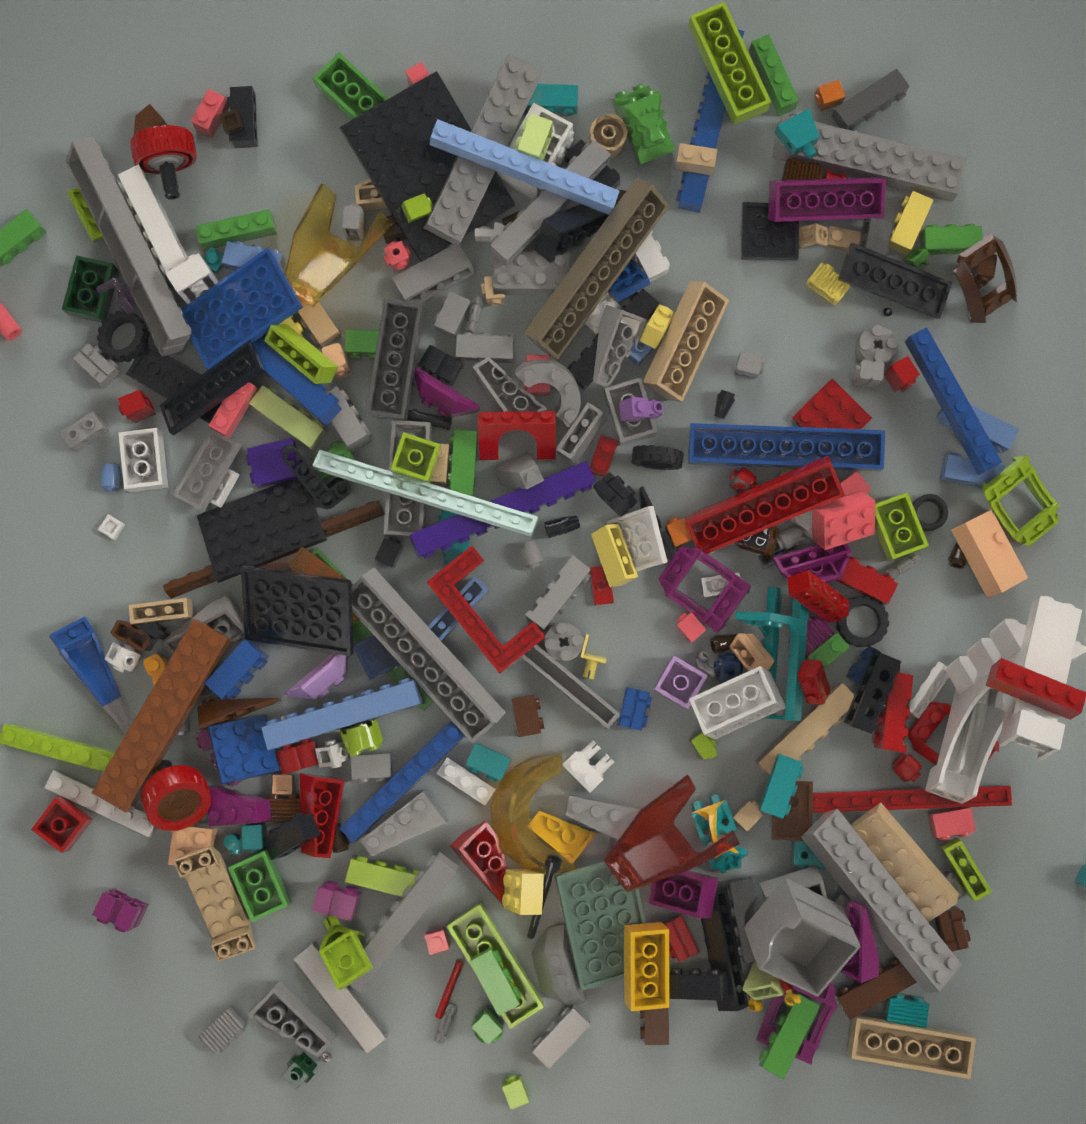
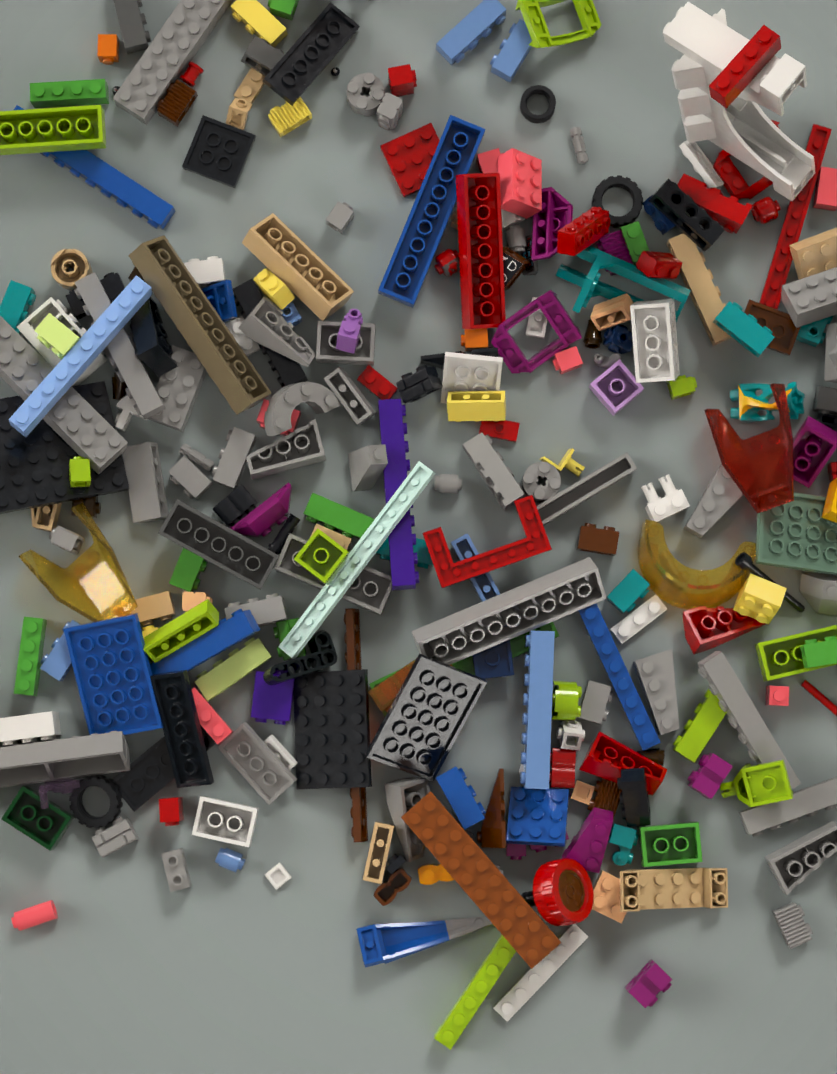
camera: 70 degrees left, 0 degrees up
(62, 824) = (548, 1014): red brick -> none
(122, 657) = (412, 901): white brick -> none
(192, 277) = (67, 711): white brick -> none
(214, 259) = (50, 689): teal plate -> none
(321, 678) = (495, 721): lavender wedge -> none
(389, 552) = (397, 616): black brick -> none
(398, 261) = (118, 515): coral brick -> none
(487, 288) = (178, 435): tan bracket -> none
(495, 424) = (315, 471): red arch -> none
(561, 526) = (430, 446): black hinge -> none
(561, 834) = (719, 546): yellow wing -> none
(634, 708) = (625, 438): blue brick -> none
(644, 123) = (71, 230): bright green brick -> none
(657, 457) = (399, 332): black tyre -> none
(696, 159) = (127, 194): tan brick -> none
(724, 403) = (368, 253): black cone -> none
(747, 814) = (759, 369): tan brick -> none
(799, 134) = (140, 90): teal torso -> none
(826, 199) = (210, 88): magenta brick -> none
(868, 582) = (583, 182): red brick -> none
(898, 527) = (543, 135): lime brick -> none
(917, 257) = (294, 26): bright green tile -> none
(952, 401) = (444, 43): blue brick -> none
(957, 558) = (586, 90): dark brown cone -> none
(989, 554) = (596, 63): light nougat brick -> none

